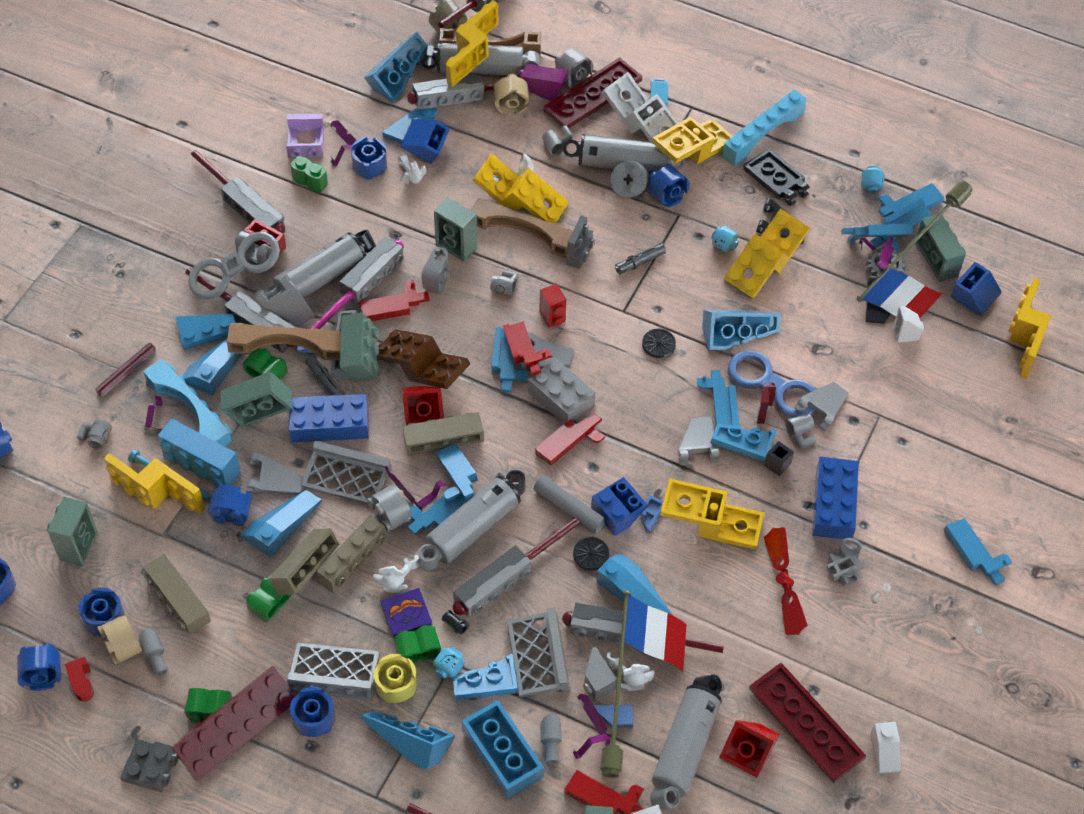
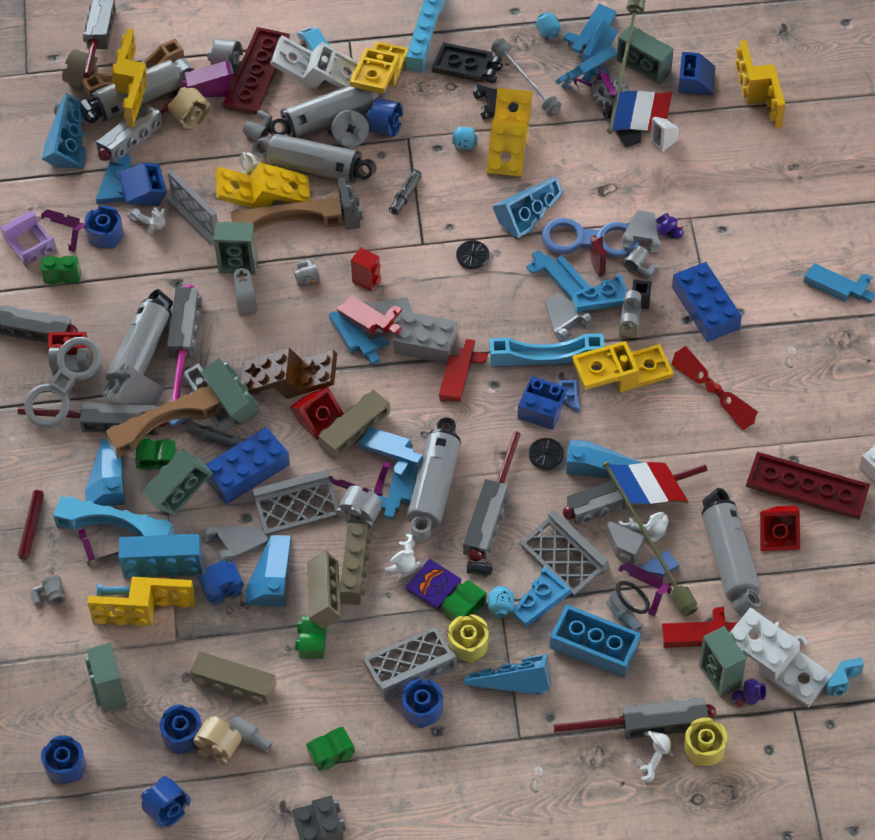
camera: 30 degrees left, 0 degrees up
(80, 684) = (204, 794): red leg -> none
(203, 328) = (74, 452): dark azure wing -> none
(234, 723) = (365, 749): plate -> none
(394, 305) = (225, 342): piece -> none
(449, 174) = (192, 208): none -> light grey fence
(551, 727) = (626, 603): none -> black piece
(569, 504) = (500, 423): light grey brick -> none
(583, 189) = (314, 158): none -> light grey piece
(625, 447) = (515, 353): none -> medium azure arch
(753, 476) = (630, 314): none -> light grey piece
(823, 248) = (551, 103): none -> light grey axle
(846, 555) = (745, 343): light grey piece -> none
(852, 408) = (669, 223): none -> dark purple animal

